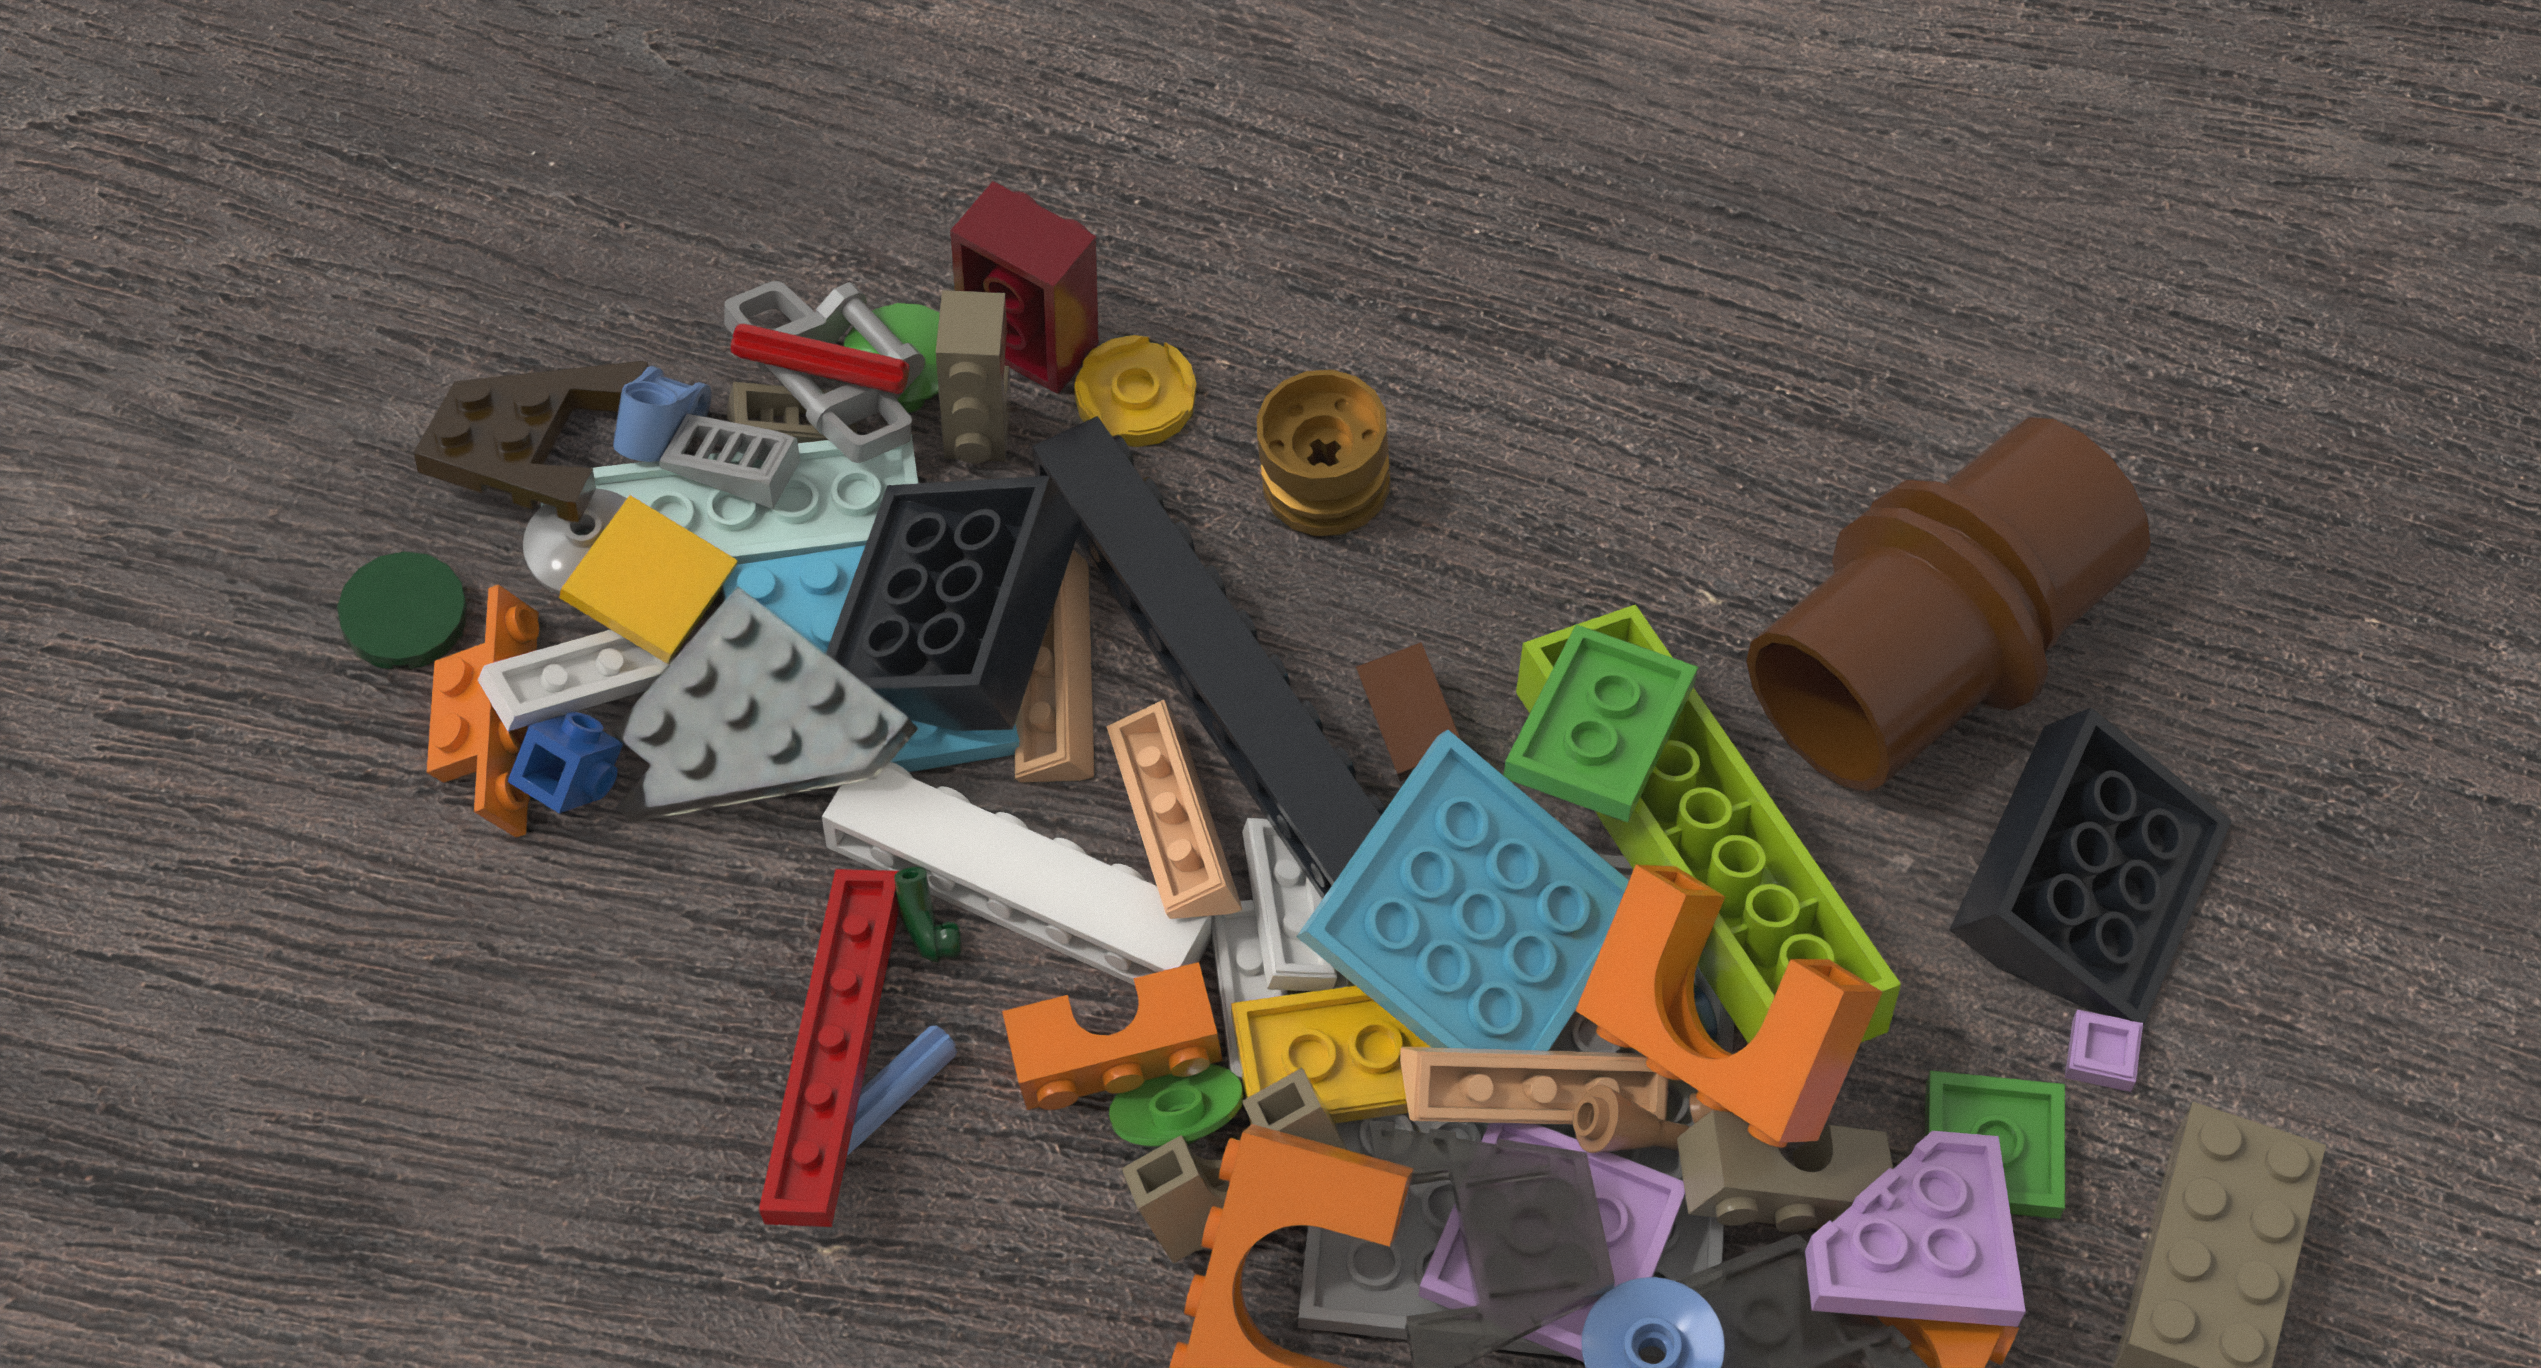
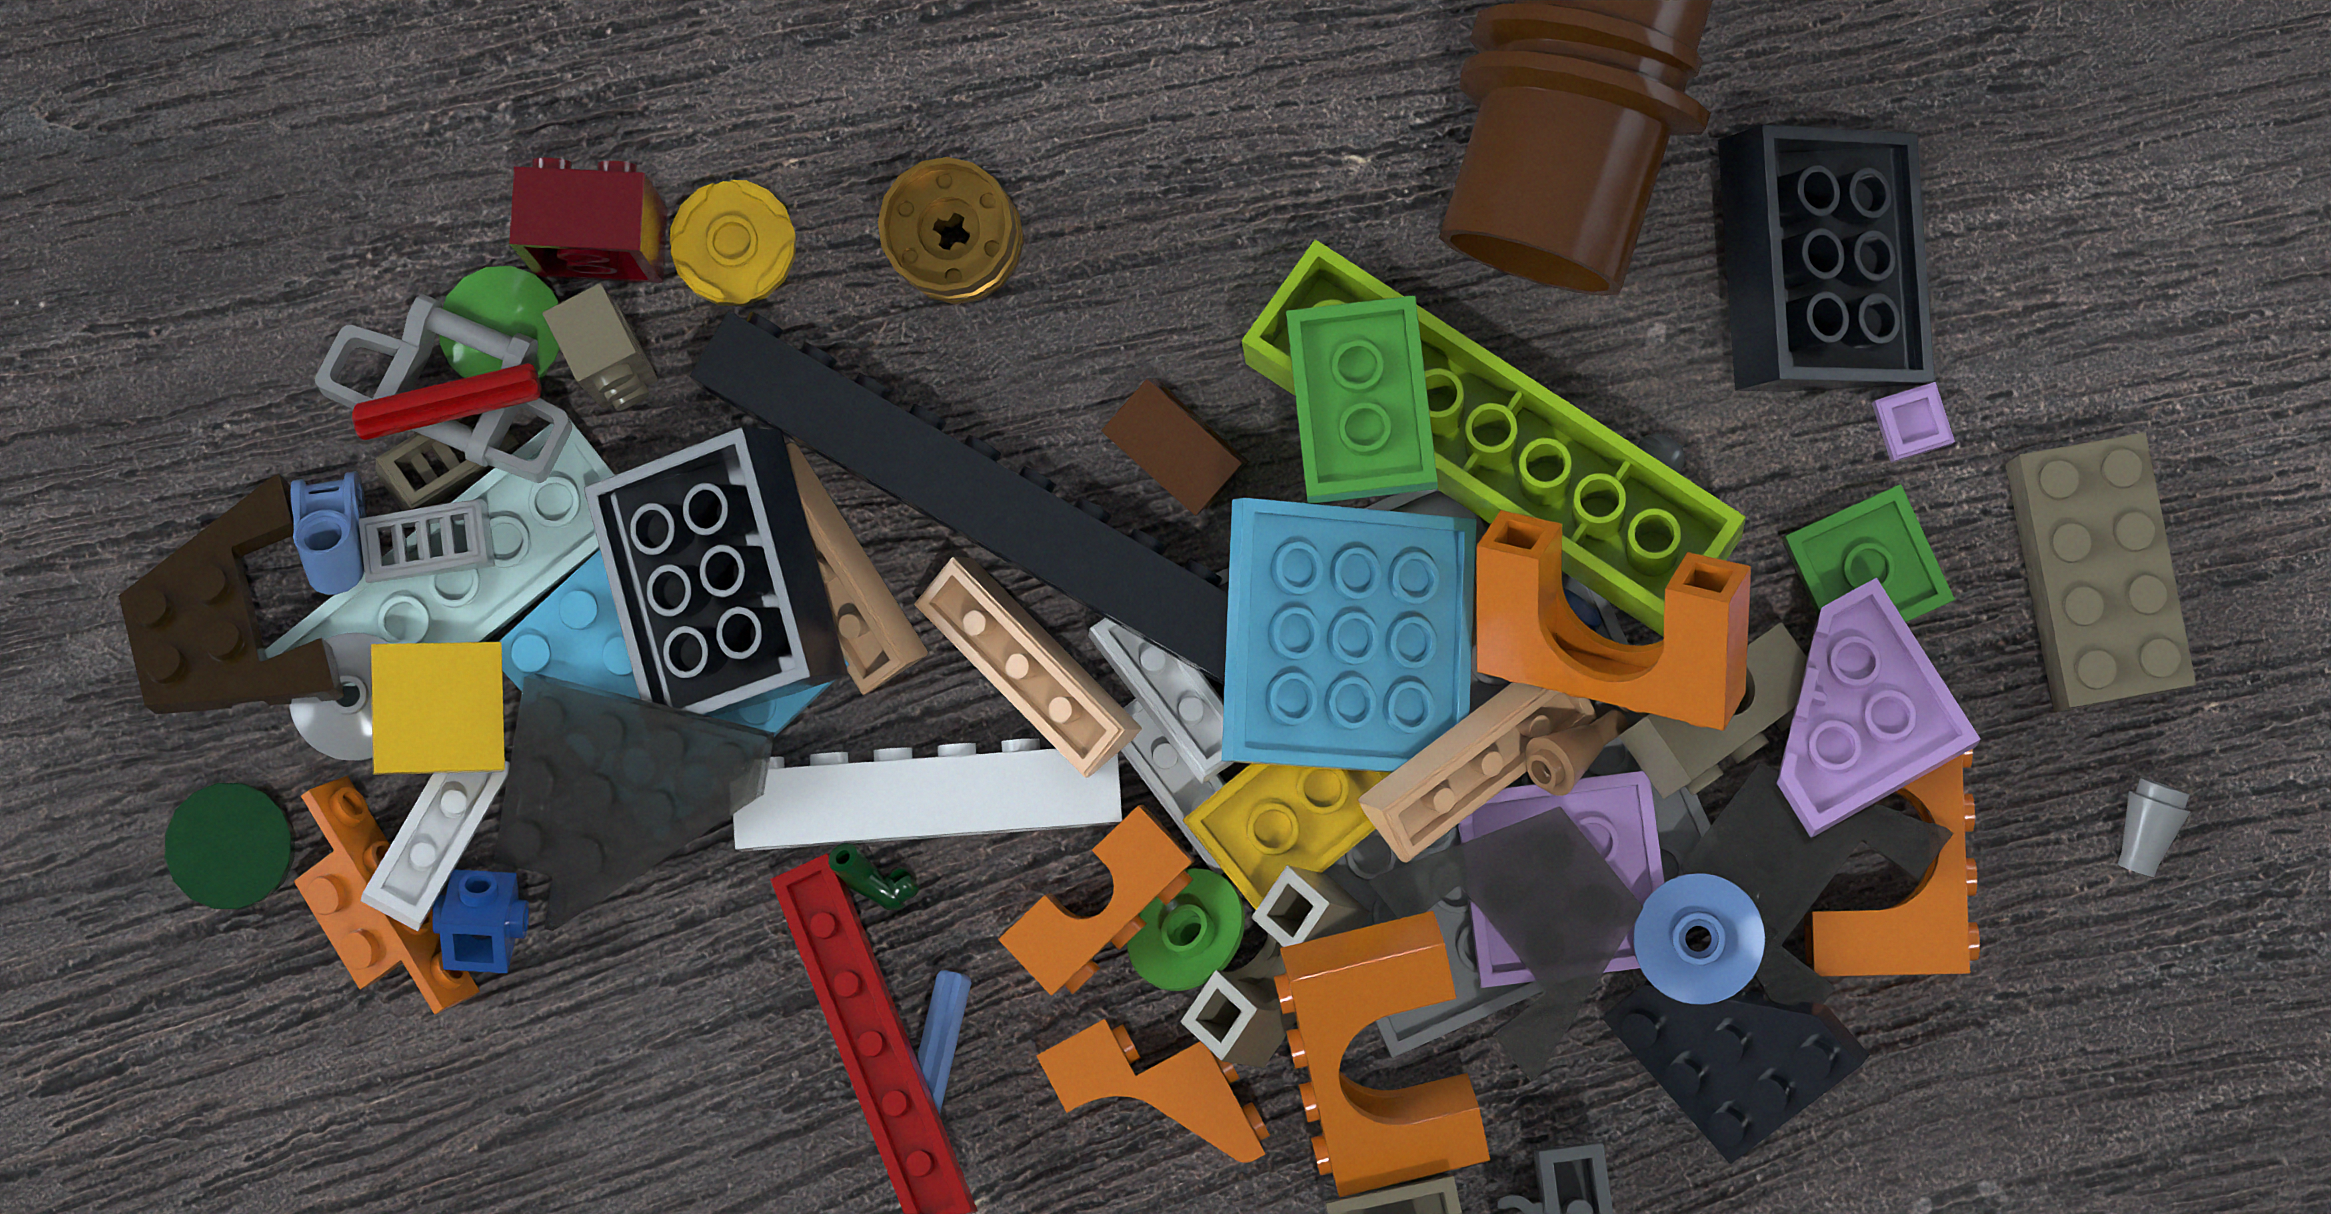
camera: 25 degrees left, 25 degrees up
(1089, 1234) = (1186, 1086): none -> orange arch

